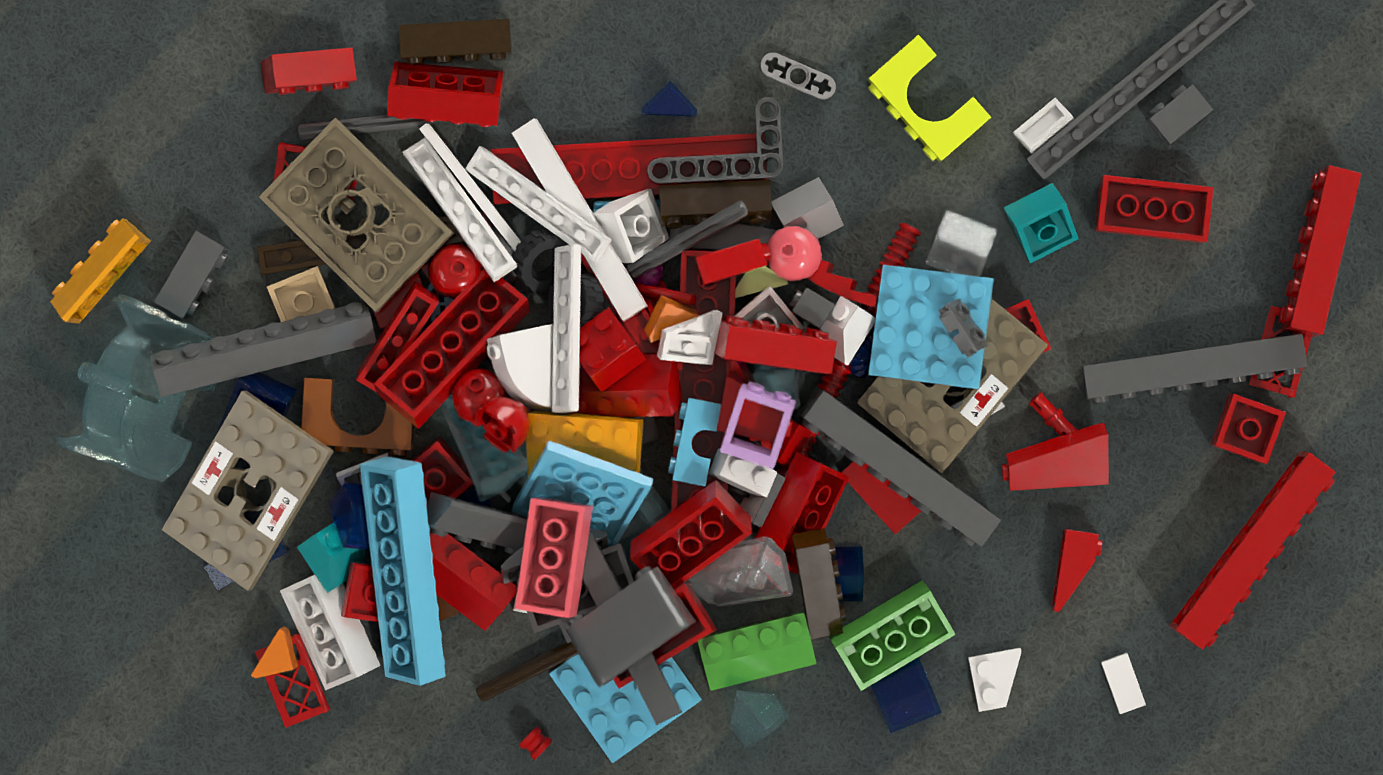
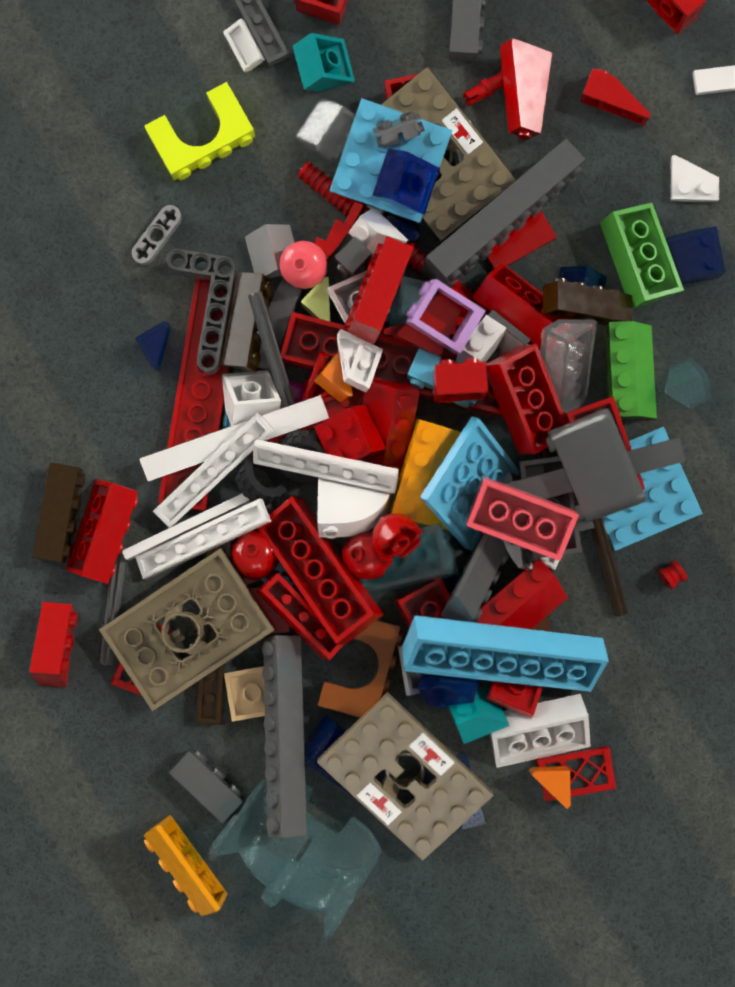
camera: 85 degrees left, 5 degrees down
(687, 457) = (459, 381): none -> red brick
(732, 261) = (298, 314): red slope -> none
(905, 349) = (406, 181): none -> clear blue slope

